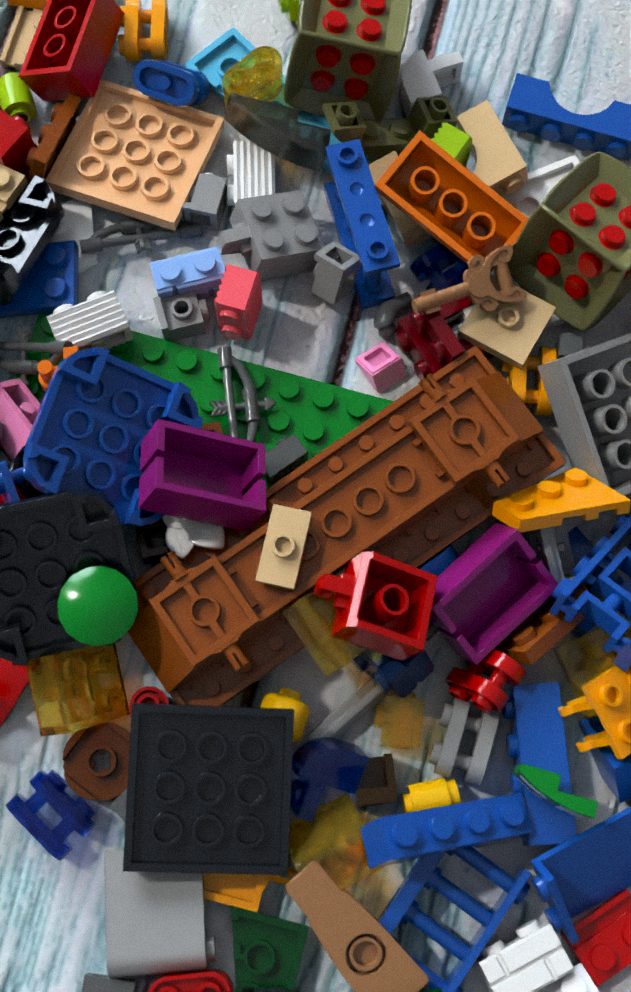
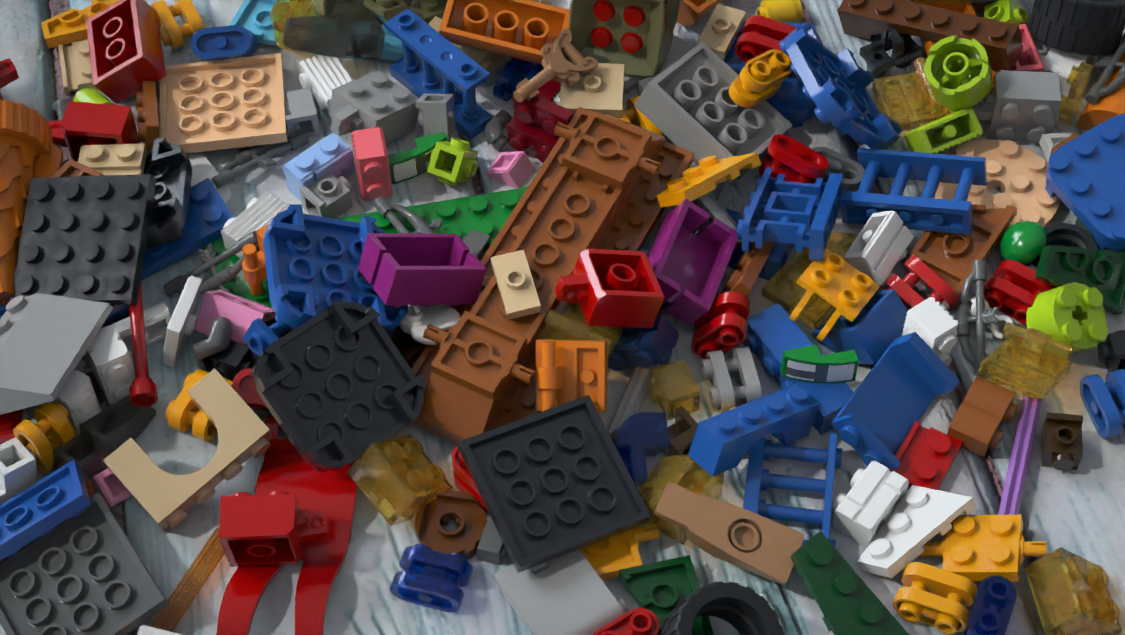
camera: 25 degrees left, 20 degrees down
(97, 606) = (392, 386): green dish -> none
(289, 675) = (571, 371): none -> orange plate
(306, 311) = (413, 162): none -> slope
(323, 336) = (453, 161): none -> lime brick

